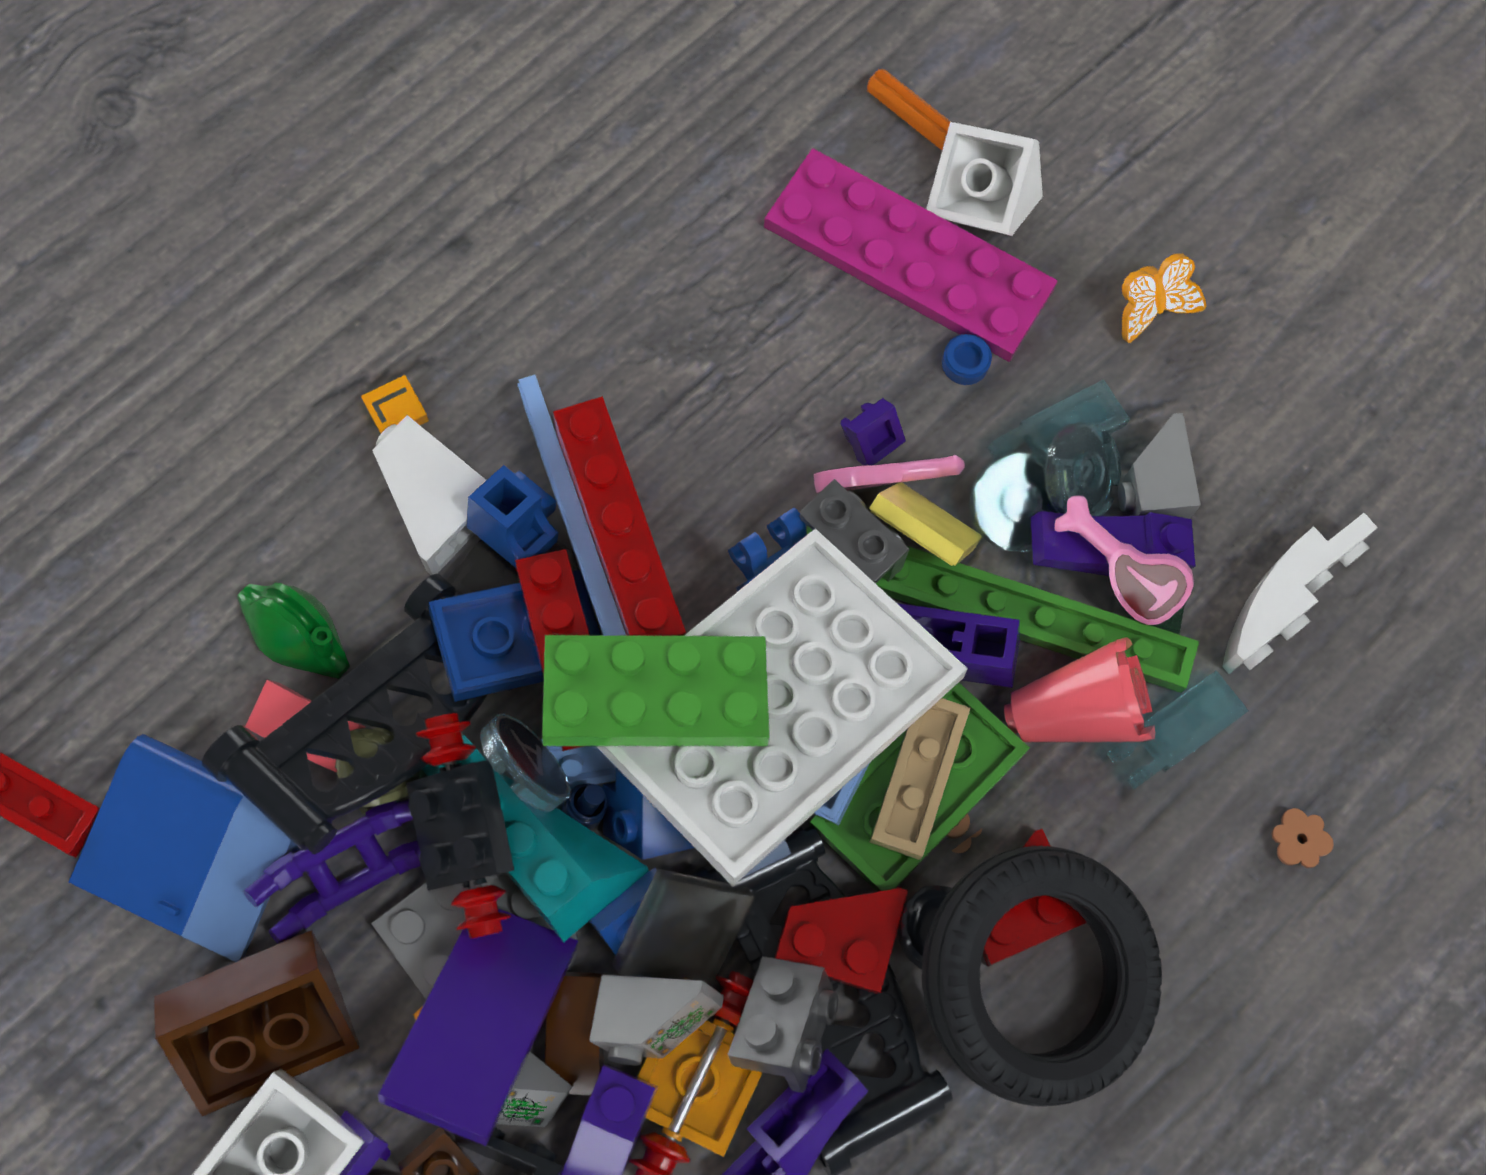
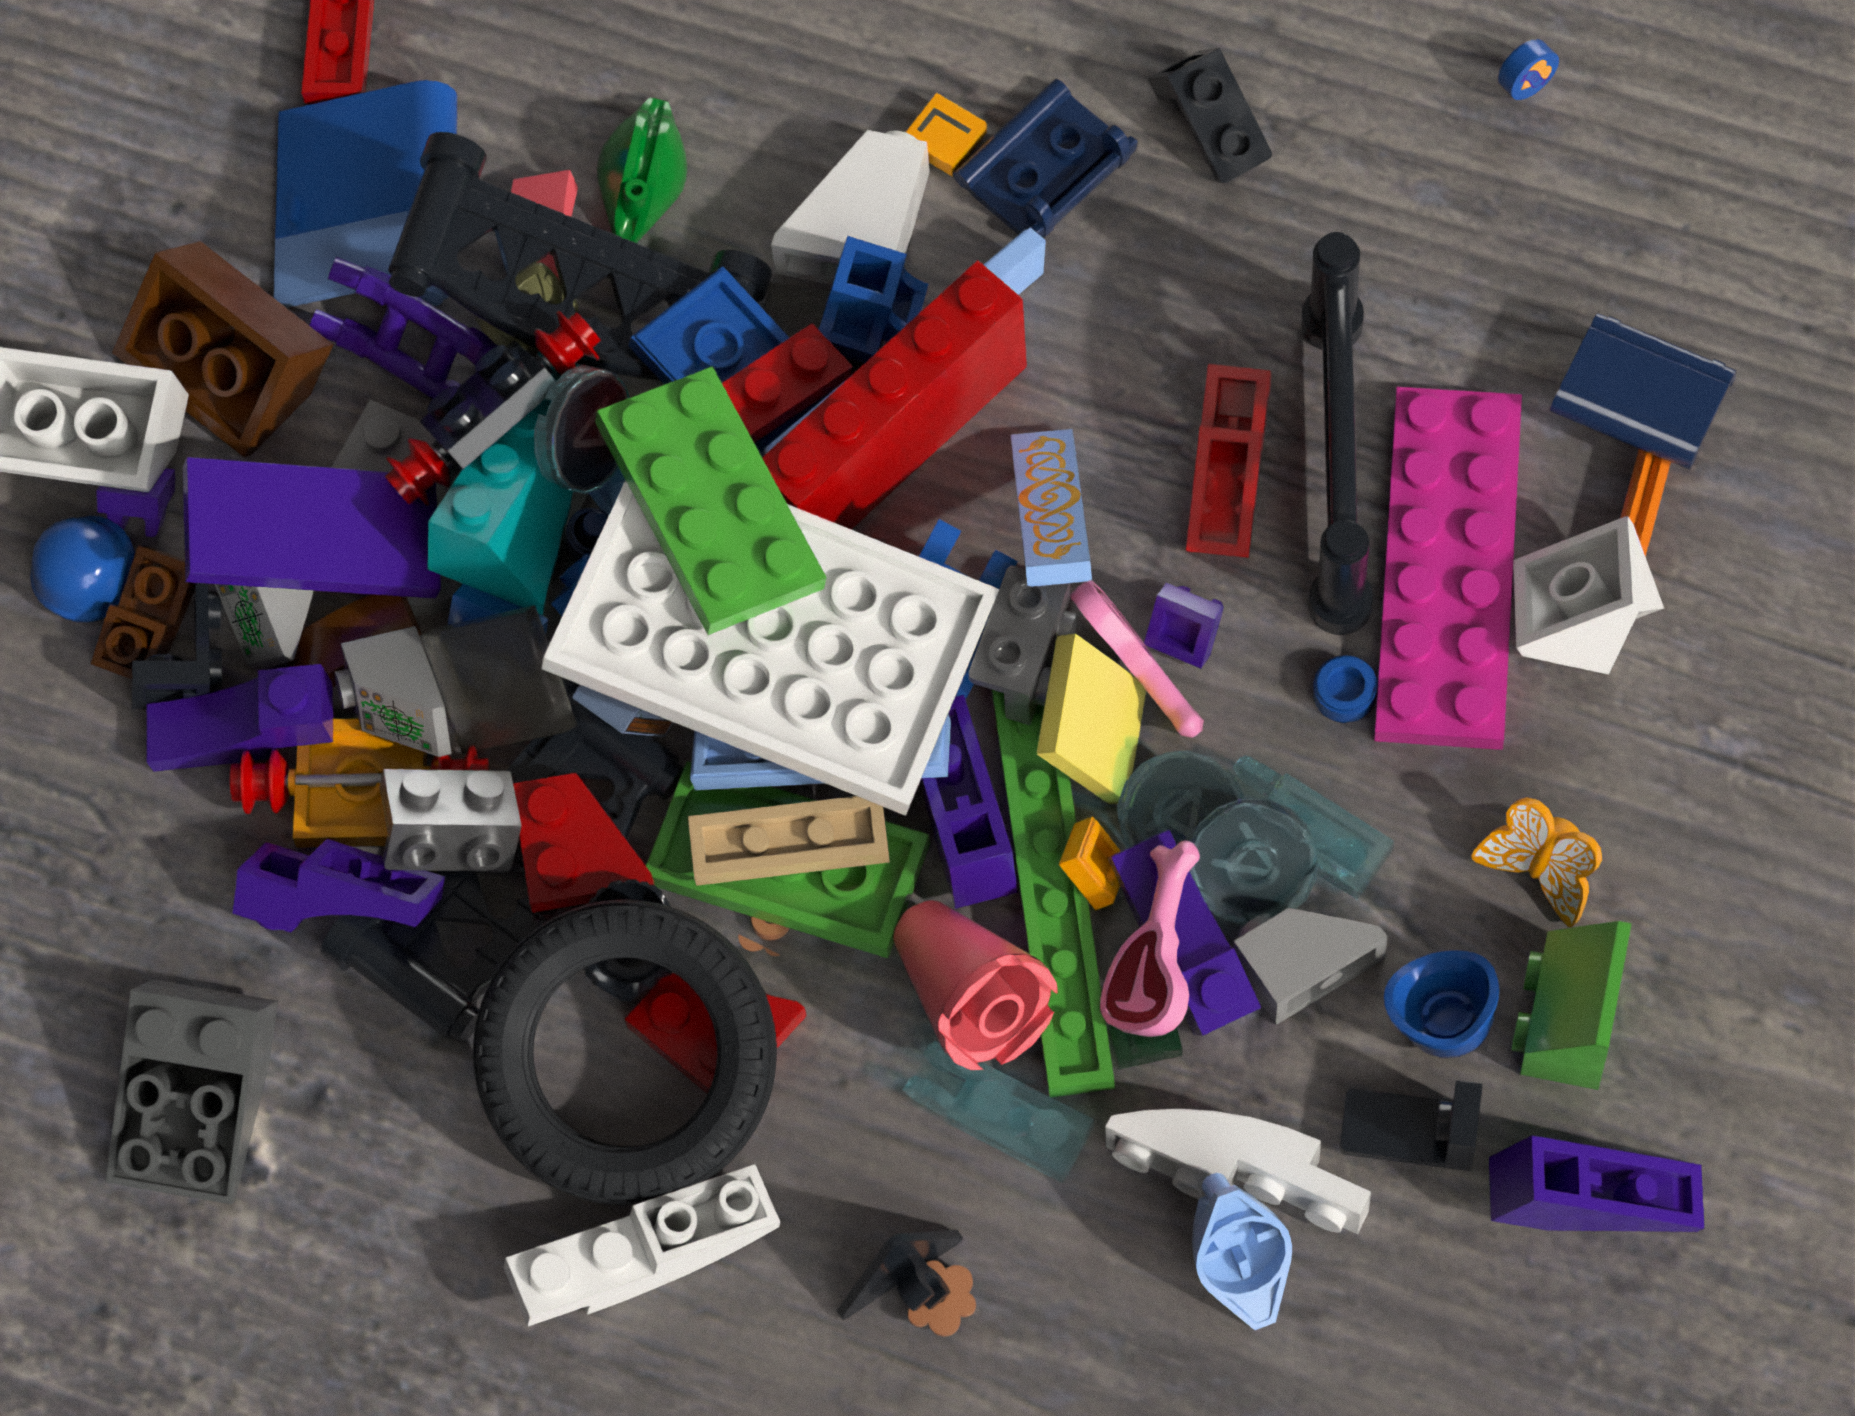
camera: 75 degrees right, 5 degrees down
(458, 354) = (1044, 161): none -> dark blue piece
(484, 220) = (1214, 112): none -> black bracket
(575, 26) = (1528, 69): none -> blue tile
(695, 223) = (1333, 322): none -> black piece
(757, 468) = (1050, 508): none -> light blue tile
(764, 342) = (1228, 460): none -> red slope
(857, 73) = (1643, 390): none -> dark blue piece
(1030, 578) = (1087, 862): none -> light orange tile
(1184, 1040) = (644, 1250): none -> white slope
(1240, 400) = (1444, 1002): none -> blue helmet
(1280, 321) = (1573, 1003): none -> bright green slope
(1284, 852) = (904, 1264): none -> black piece
(1315, 463) = (1413, 1127): none -> black bracket
(1359, 618) = (1240, 1251): none -> light blue hat
(1403, 386) = (1593, 1189): none -> dark purple slope

